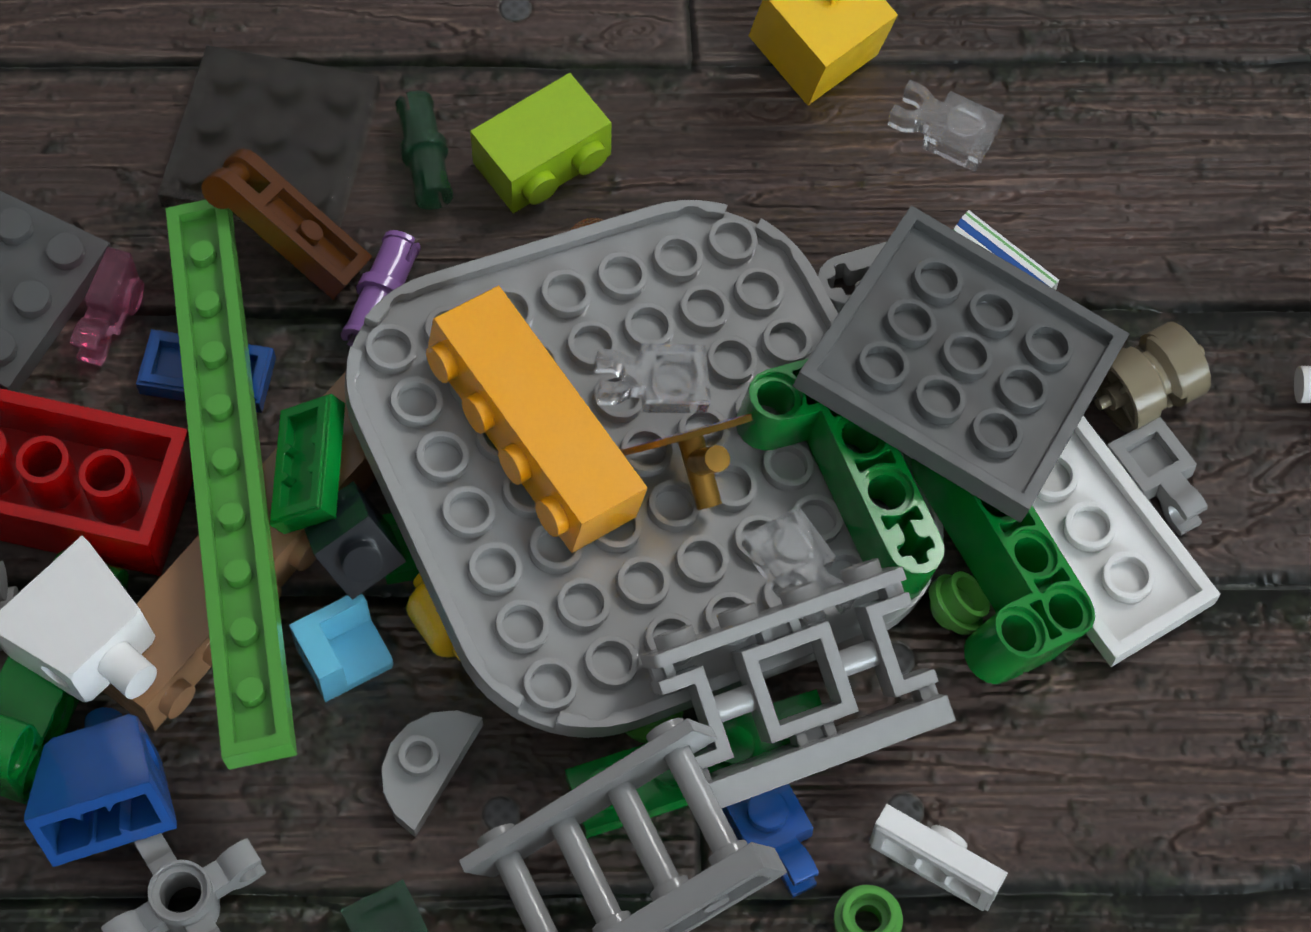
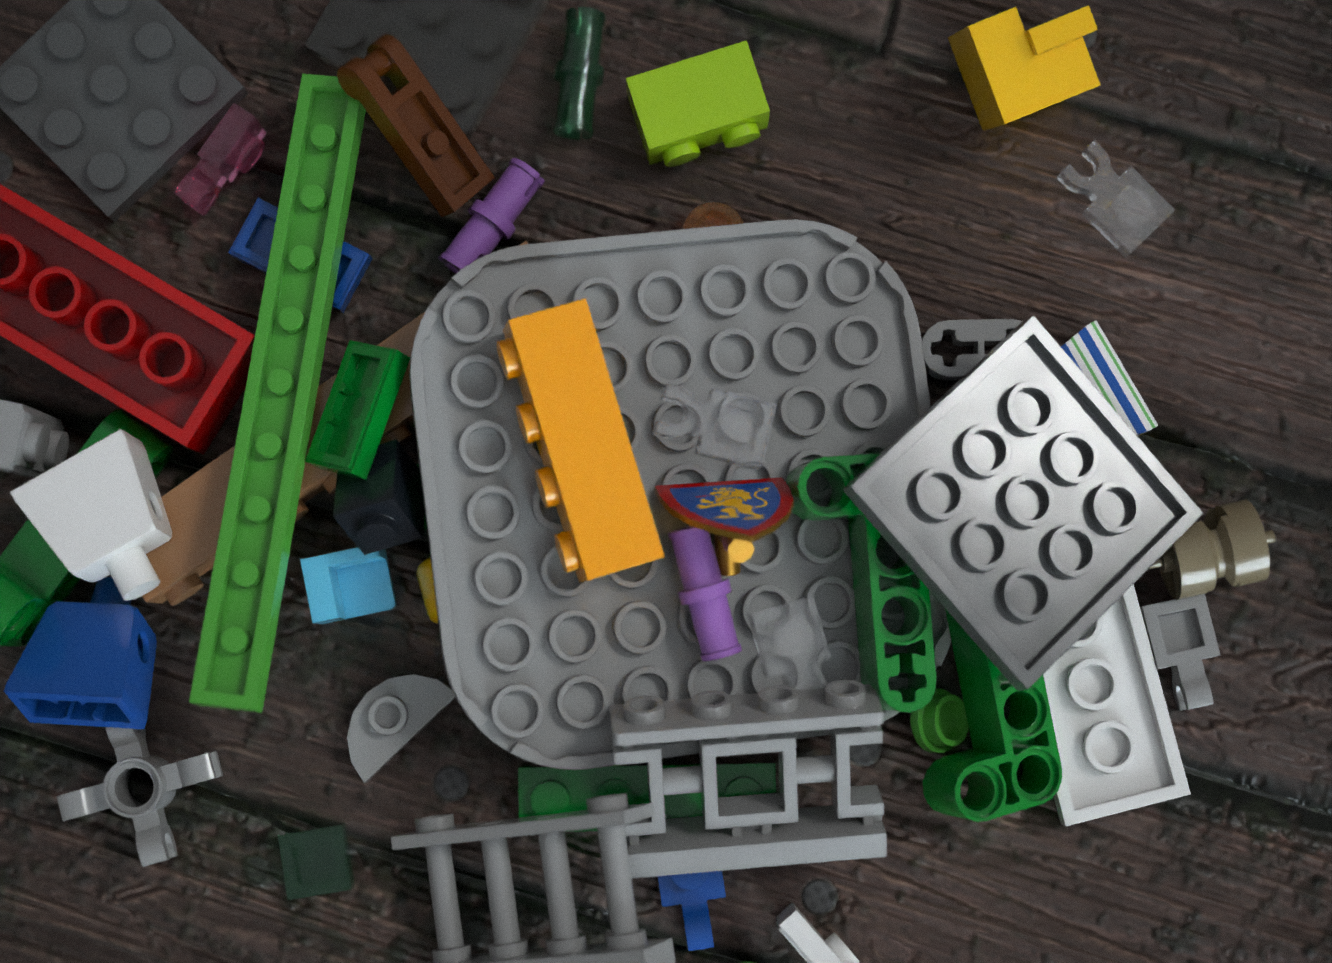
camera: 20 degrees right, 20 degrees up
(695, 525) = (705, 593): none -> medium lavender pin

